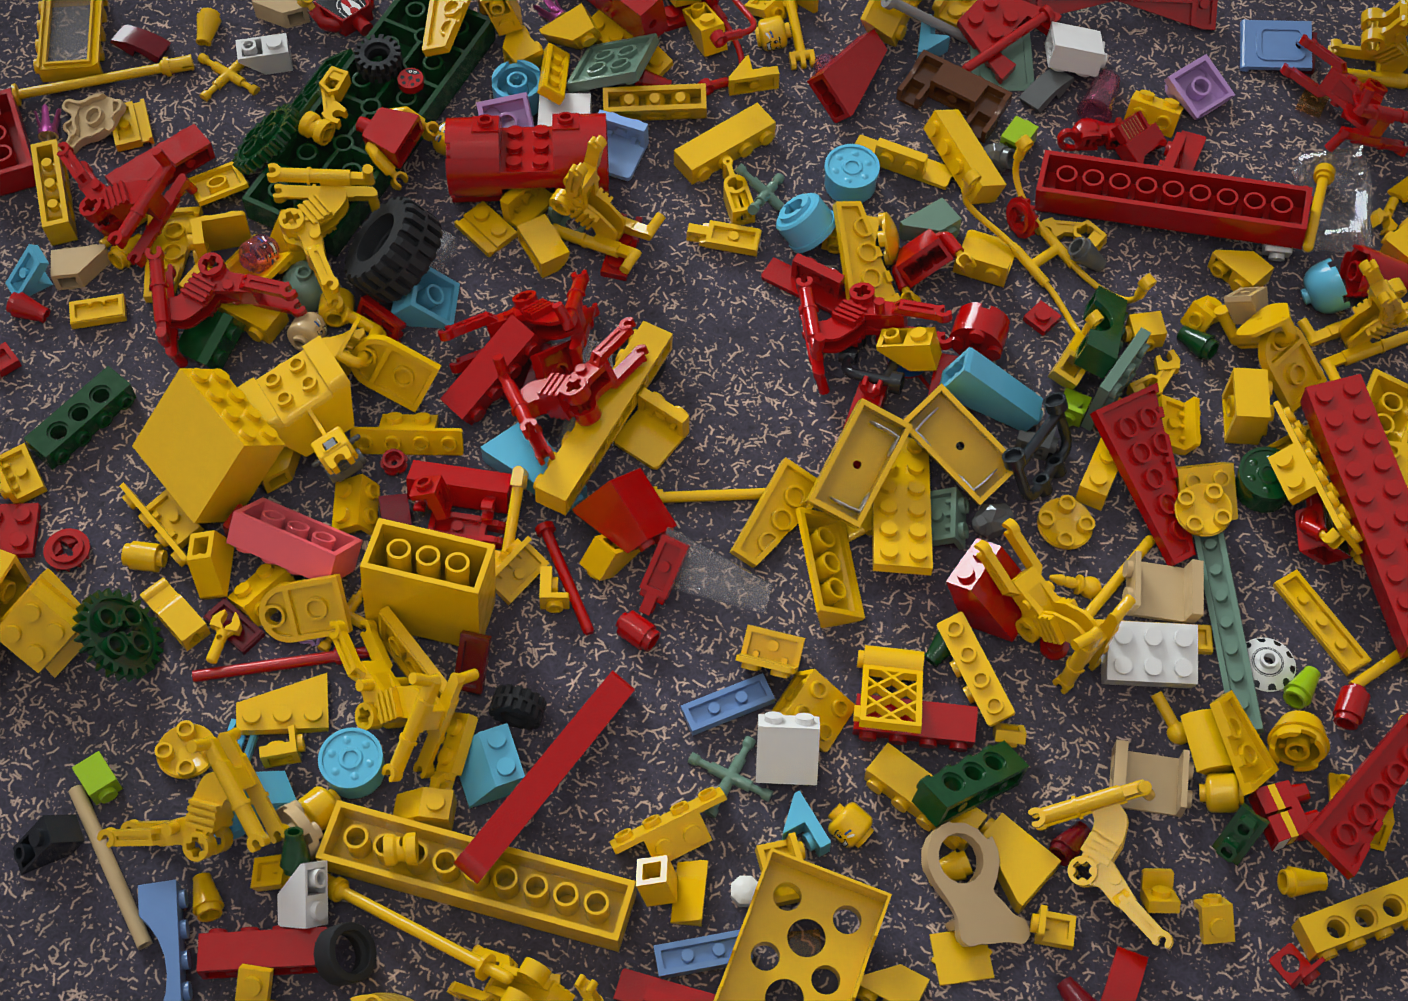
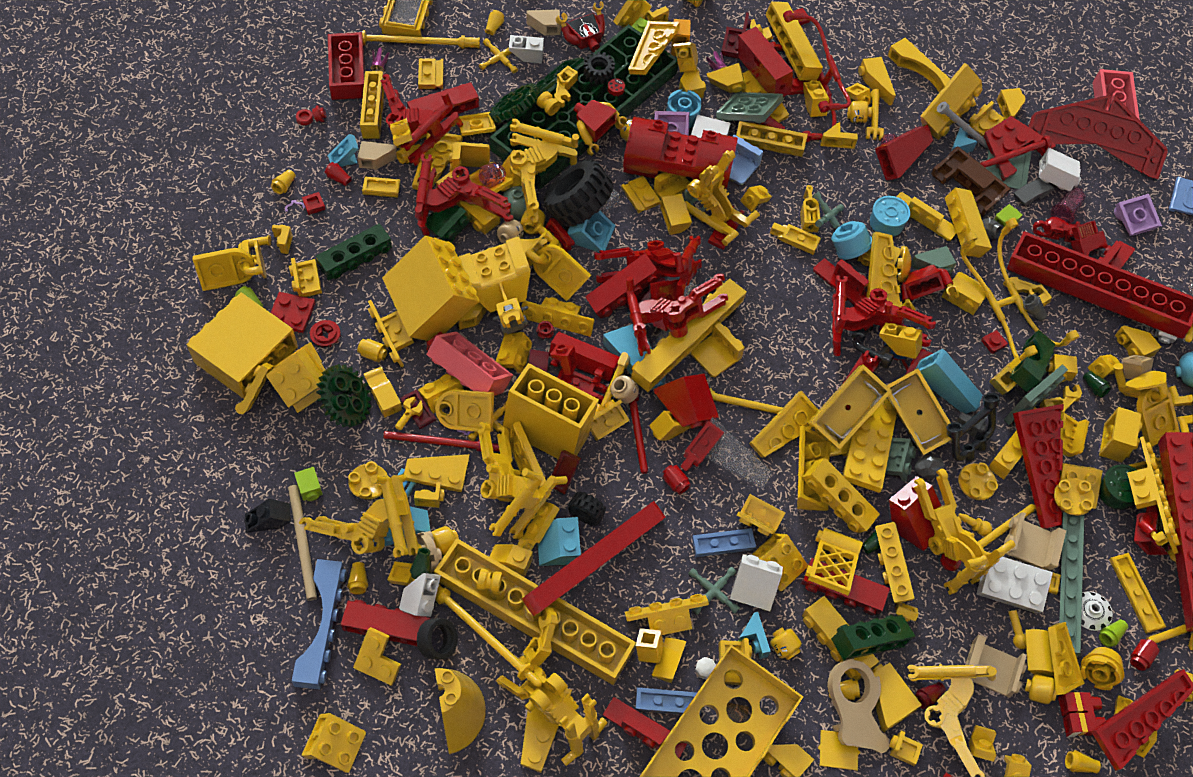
camera: 10 degrees right, 0 degrees up
(91, 119) = (407, 64): tan tile -> none
(106, 223) = (401, 132): none -> yellow slope
(135, 39) = (447, 20): dark red slope -> none
(210, 563) = (412, 365): yellow slope -> none
(352, 762) = (471, 516): medium azure wheel -> none
(499, 926) = (540, 648): none -> yellow piece
(530, 519) = (624, 389): none -> tan head
(549, 596) = (625, 444): yellow bracket -> none
(554, 73) = (709, 104): yellow tile -> none
(652, 192) = (755, 196): none -> yellow bracket
(730, 138) = (817, 173): yellow brick -> none
(892, 593) = (838, 485): none -> yellow brick
(981, 330) = (952, 339): red brick -> none
(1015, 211) = (993, 267): red gear -> none
(1077, 406) = (1004, 407): lime bracket -> none
(1162, 111) = (1104, 222): yellow bracket -> none
(1240, 835) = (1047, 720): dark green hips -> none

